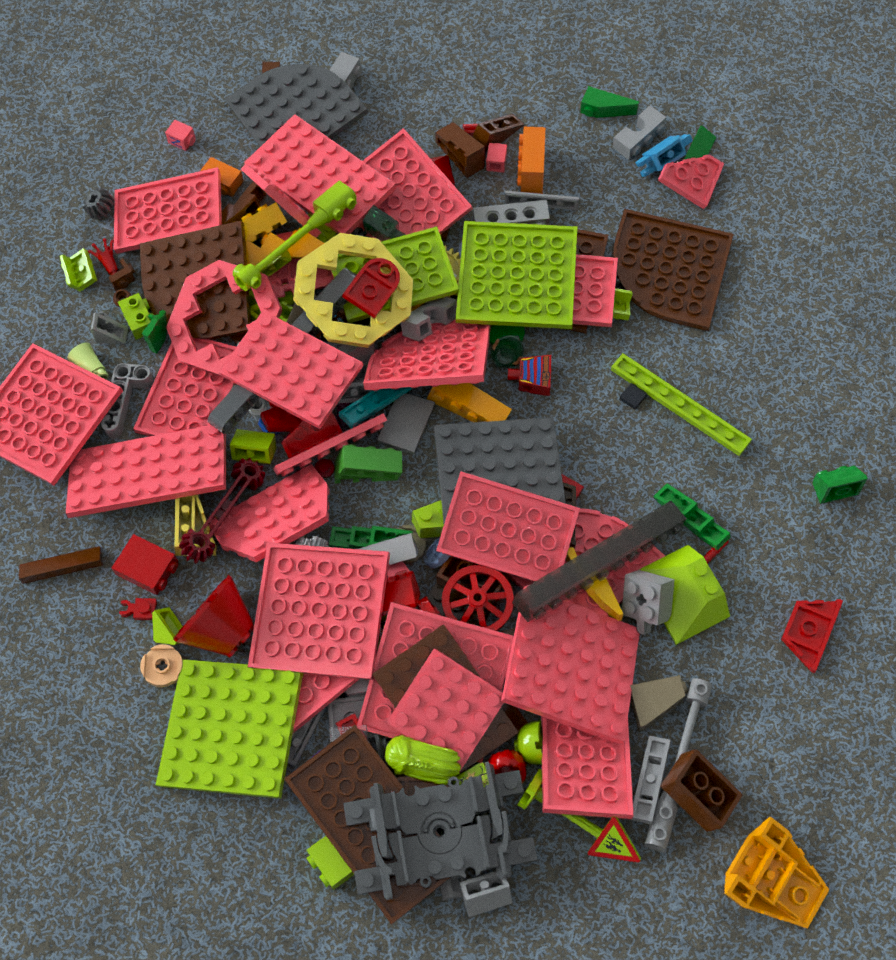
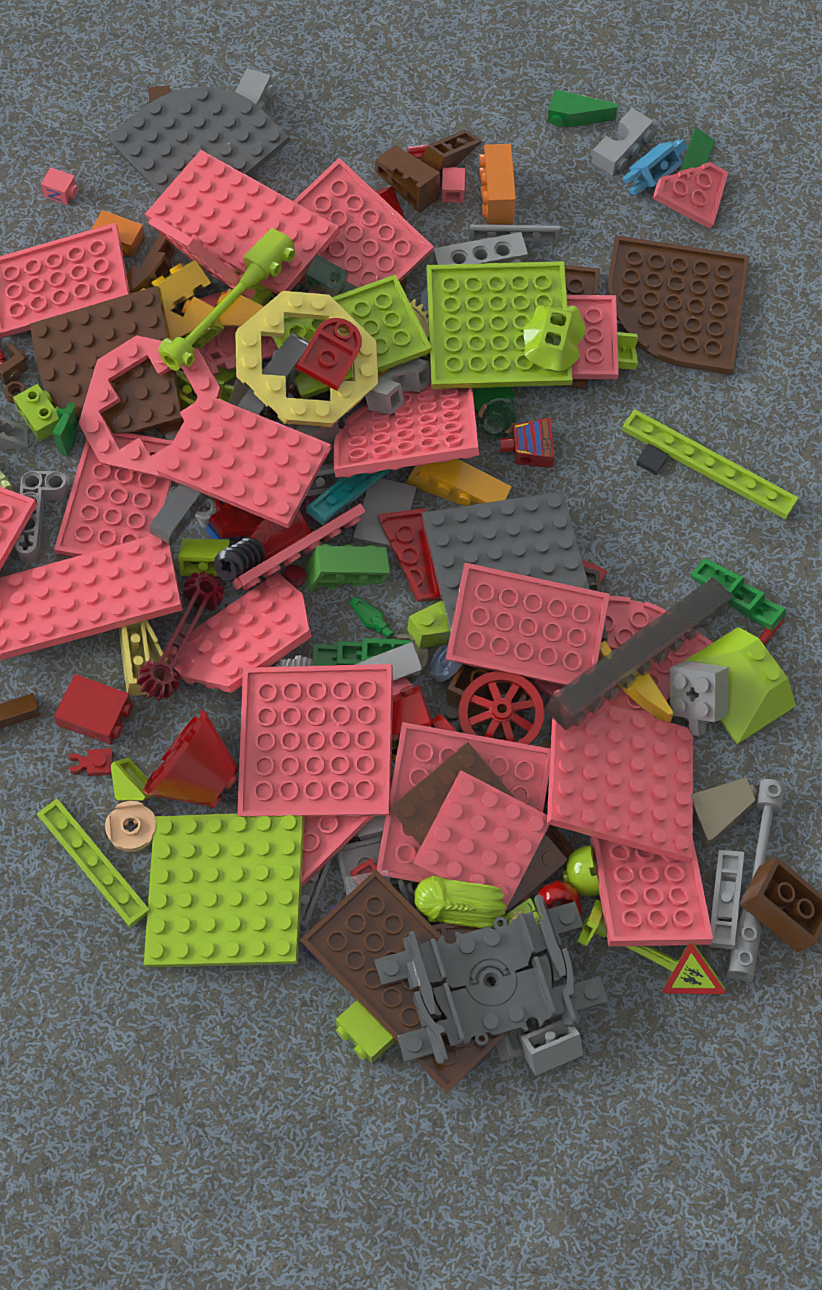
camera: 10 degrees left, 0 degrees up
(127, 694) = (93, 863): none -> lime plate
(278, 450) = (239, 558): none -> black piece
(383, 508) = (371, 617): none -> green piece
(421, 448) = (410, 545): none -> red wing
(575, 287) = (548, 355): none -> lime piece

